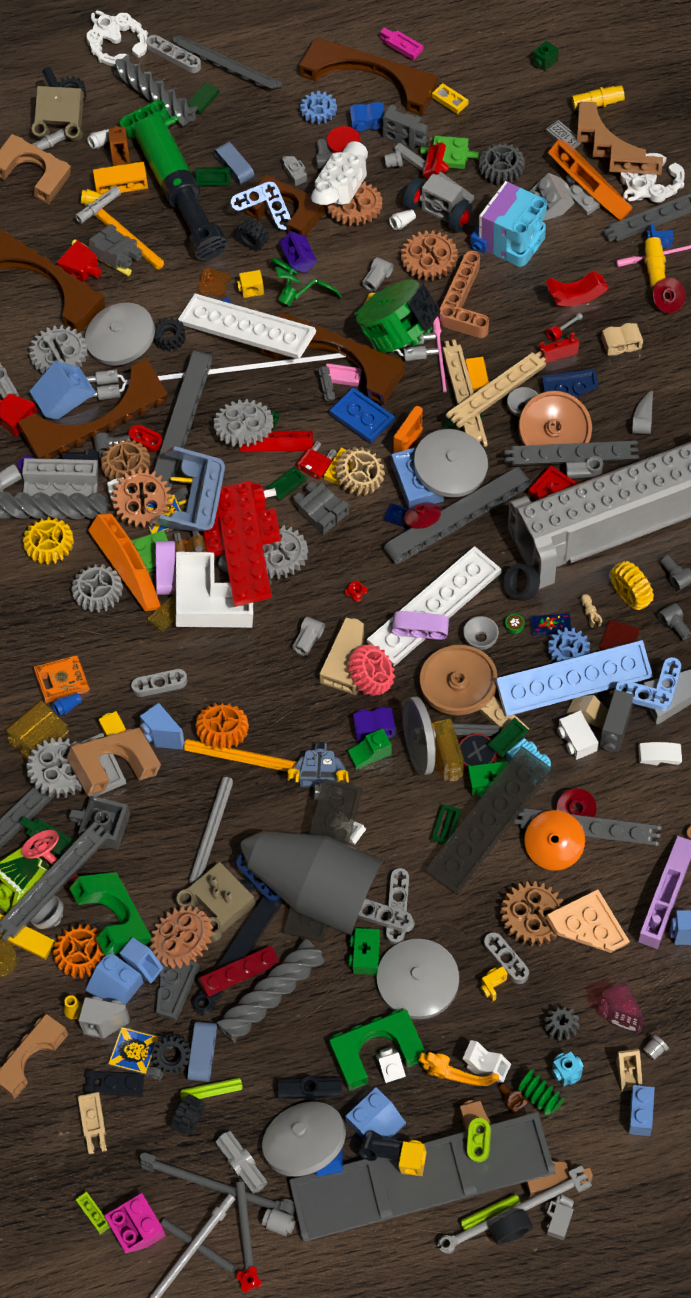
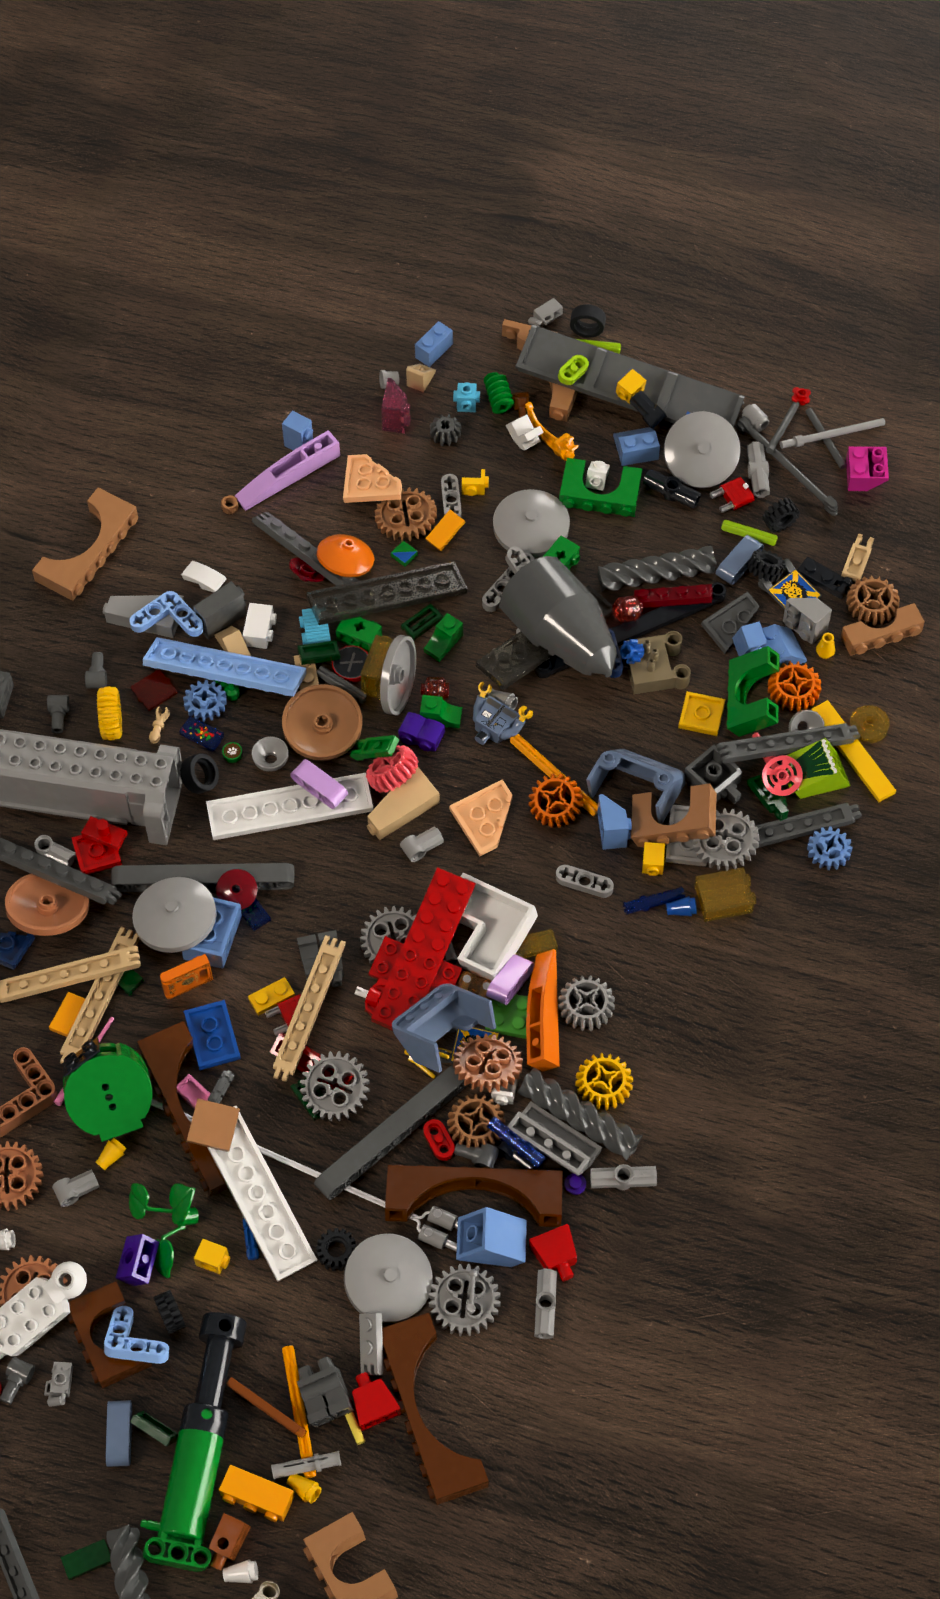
camera: 150 degrees left, 0 degrees up
(51, 1090) = (872, 607): none -> medium nougat gear
(65, 676) = (668, 934): orange container -> none
(83, 453) = (520, 1145): none -> clear blue pin
(93, 1213) = (894, 498): lime piece -> none
(98, 691) = (654, 900): none -> clear blue pin
(103, 289) = (371, 1343): none -> light grey hinge
(147, 220) = (266, 1407): none -> dark orange tile
(149, 883) = (701, 713): none -> yellow tile
(163, 793) = (664, 777): none -> sand blue windscreen
(181, 937) = (709, 627): nougat gear -> none
(211, 829) = (621, 726): light grey axle -> none
(215, 283) = (247, 1286): clear orange plate -> none
(236, 880) = (632, 651): none -> blue gear
(249, 1125) = (736, 494): none -> red piece
(271, 931) = (627, 608): none -> clear red head
(274, 686) = (484, 816): none -> light nougat plate
(287, 483) = (337, 1010): dark green tile -> none
(301, 459) = (308, 1008): none -> tan hinge
(302, 331) = (213, 1125): none -> medium nougat tile
(355, 585) = (348, 857): red plate -> none
(361, 462) = (260, 969): tan gear -> none
(388, 765) = (435, 687): none -> clear red head
(397, 678) = (375, 747): none -> green hinge
(414, 818) = (445, 636): none -> green arch
(487, 919) = (445, 530): none -> light orange tile
(508, 879) = (404, 553): none -> green tile
(519, 397) = (45, 944): light grey piece -> none
(574, 1181) = (517, 317): light grey hinge -> none

